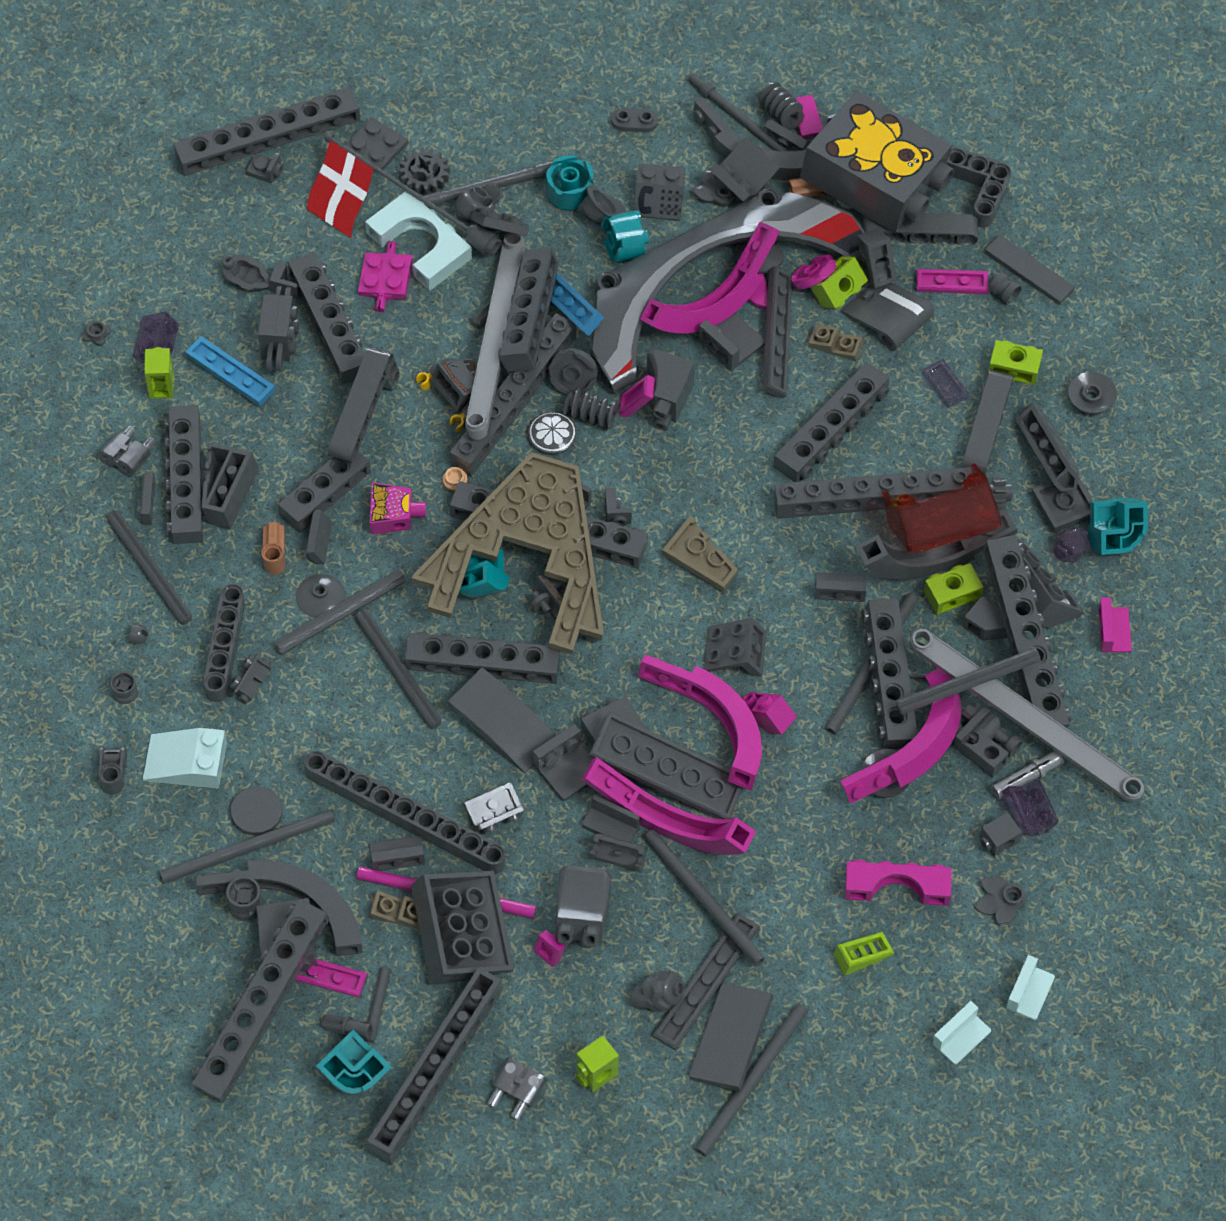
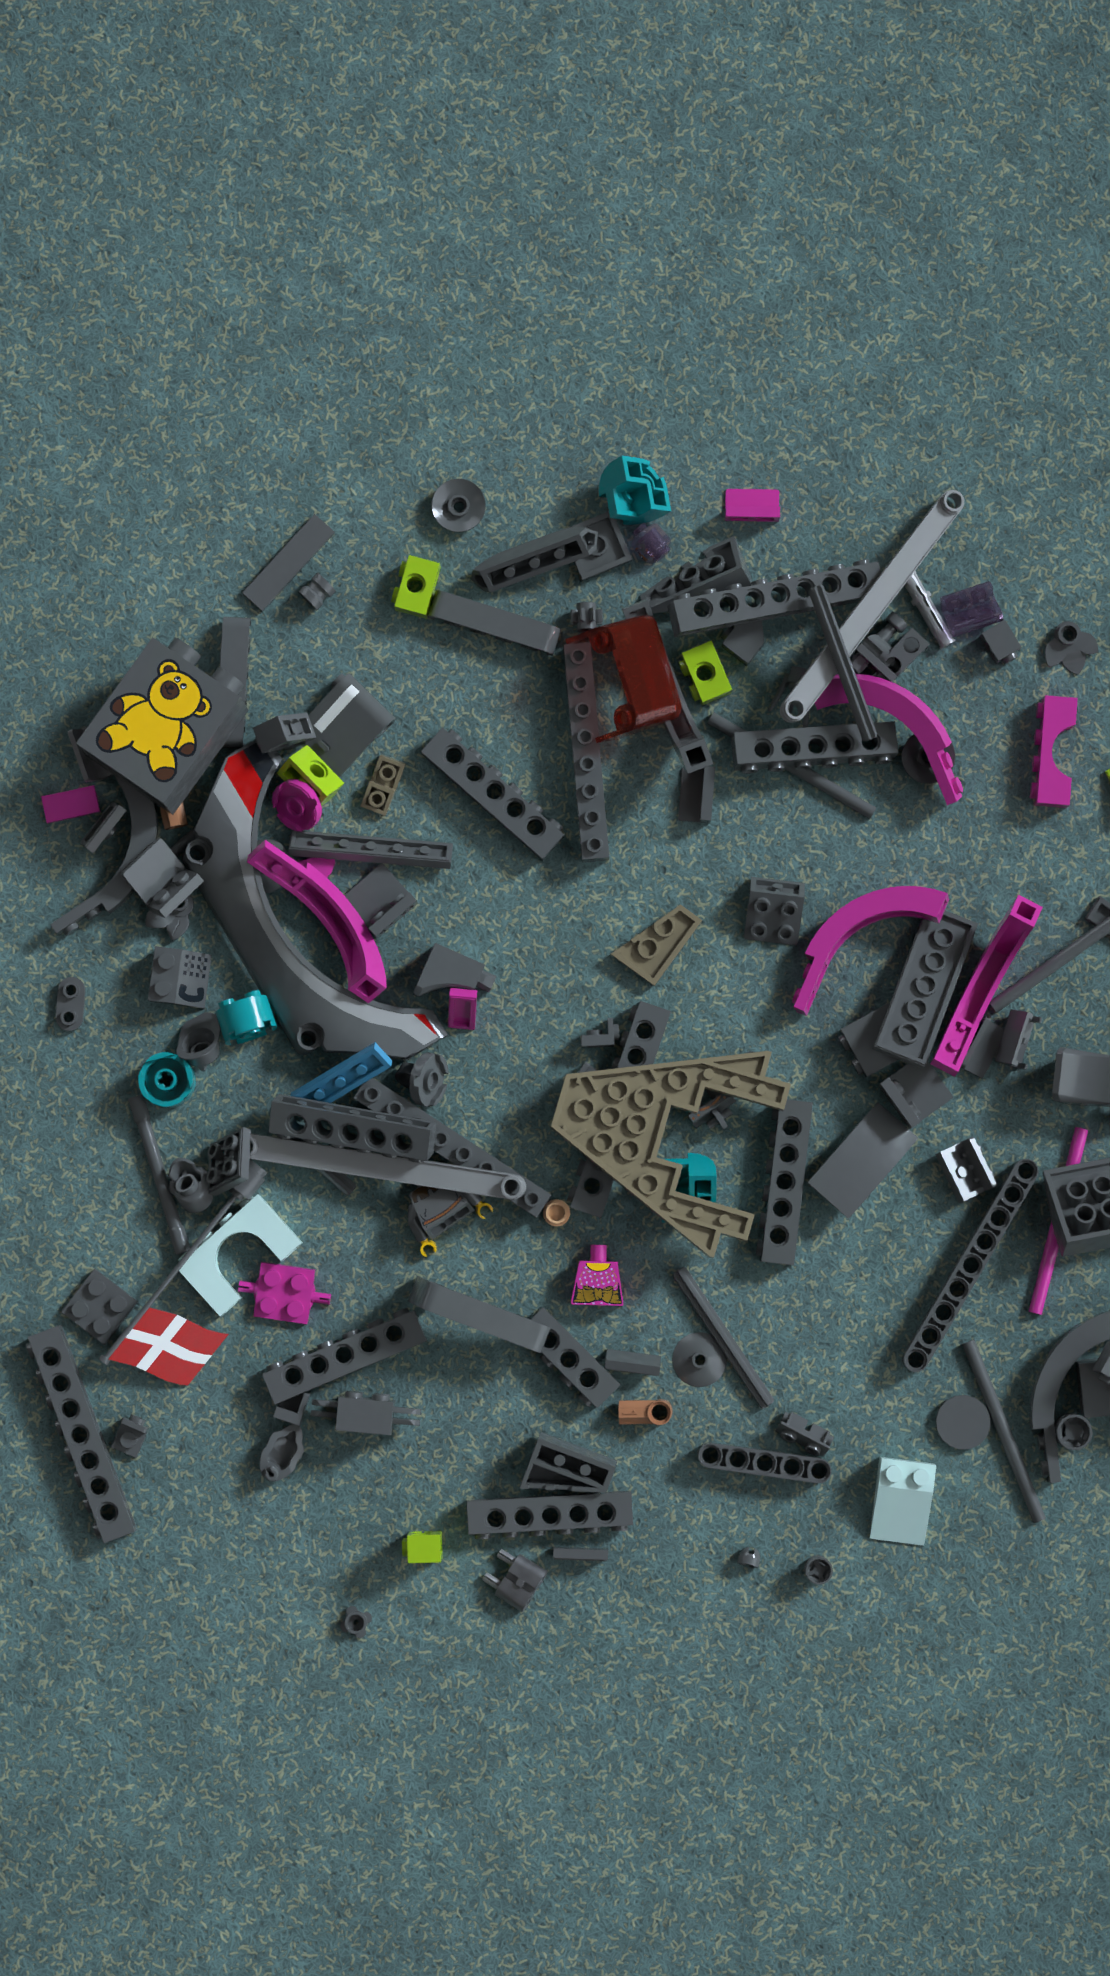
camera: 85 degrees left, 25 degrees up
(112, 765) = (911, 1578): dark grey piece -> none
(149, 567) = (663, 1549): dark grey axle -> none
(155, 331) = (366, 1553): clear purple bracket -> none
(230, 371) = (412, 1467): dark azure plate -> none
(394, 910) = (1078, 1276): dark tan slope -> none
(397, 853) = (1013, 1273): dark grey panel -> none
(398, 669) = (793, 1273): dark grey axle -> none
(420, 171) = (148, 1260): dark grey gear -> none
(552, 432) = (497, 1104): dish -> none
(590, 408) = (470, 1059): dark grey piece -> none
(709, 90) = (30, 917): dark grey bar -> none
(770, 711) = (853, 879): dark pink slope -> none
(781, 105) = (63, 833): dark grey piece -> none
(945, 383) = (438, 665): tile -> none
(952, 281) = (302, 650): dark pink tile -> none
(990, 175) = (155, 626): dark grey beam -> none

